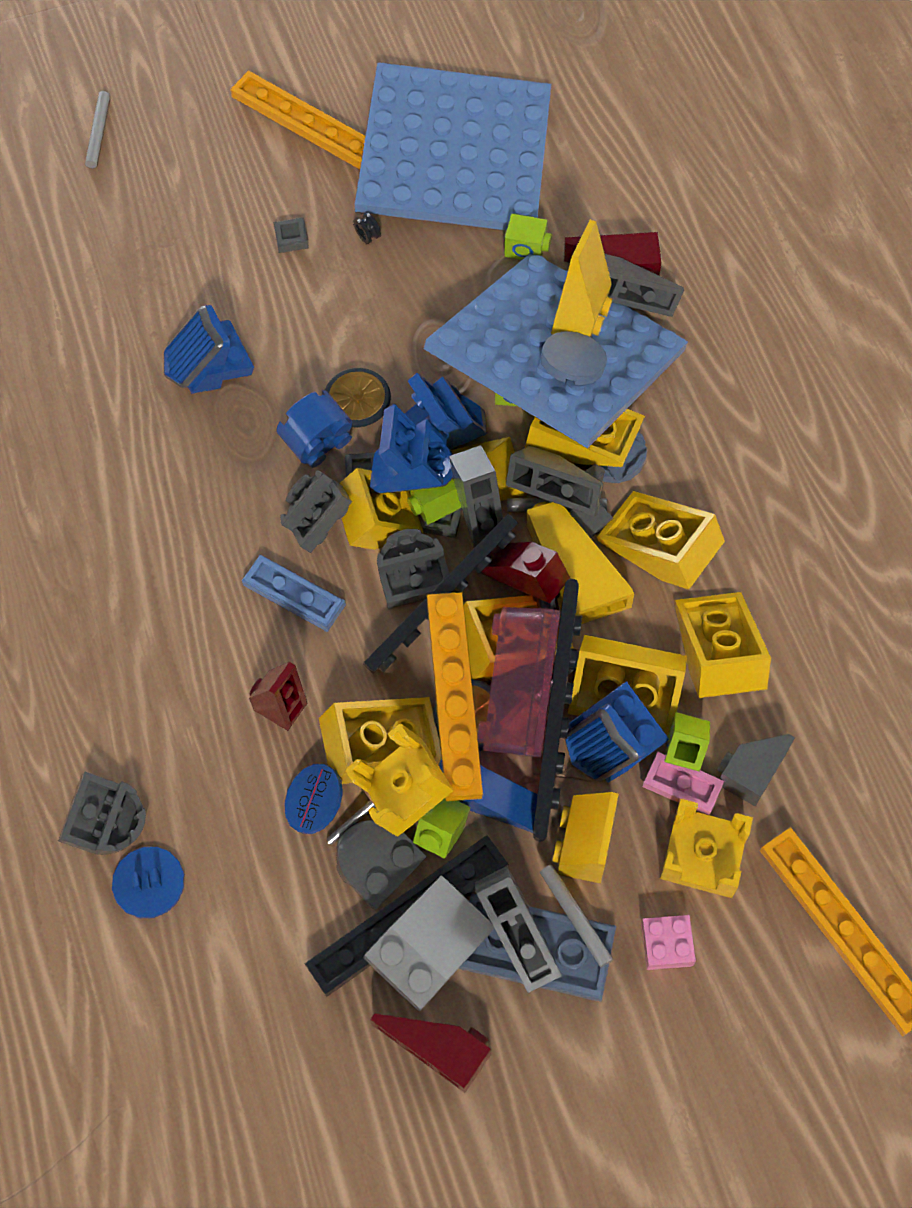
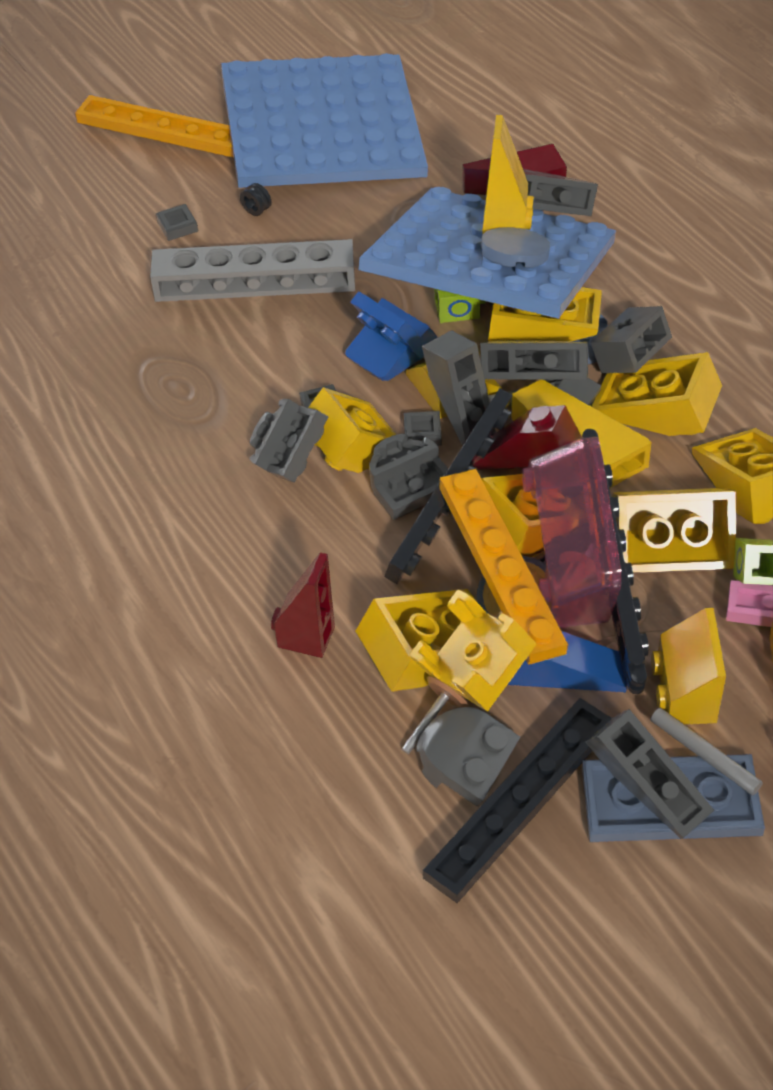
camera: 15 degrees left, 15 degrees down
(103, 816) = (141, 782): dark grey slope -> none
(148, 882) = (211, 840): blue piece -> none
(205, 353) = (121, 330): blue piece -> none
(293, 593) = (285, 527): medium blue tile -> none
(313, 798) = (376, 707): blue piece -> none
(315, 428) = (262, 369): blue brick -> none
(326, 315) = (252, 270): none -> light grey brick
(360, 395) = (294, 342): pearl gold wheel -> none
(409, 455) = (376, 366): blue piece -> none
(429, 943) = (555, 815): light grey slope -> none
(434, 502) = (409, 403): lime brick -> none
(441, 827) = (528, 698): lime brick -> none
(442, 1047) = (604, 916): dark red slope -> none
(526, 236) = (421, 174): lime brick -> none
(613, 735) = (679, 573): blue piece -> none
(656, 474) = (631, 339): none -> dark grey brick

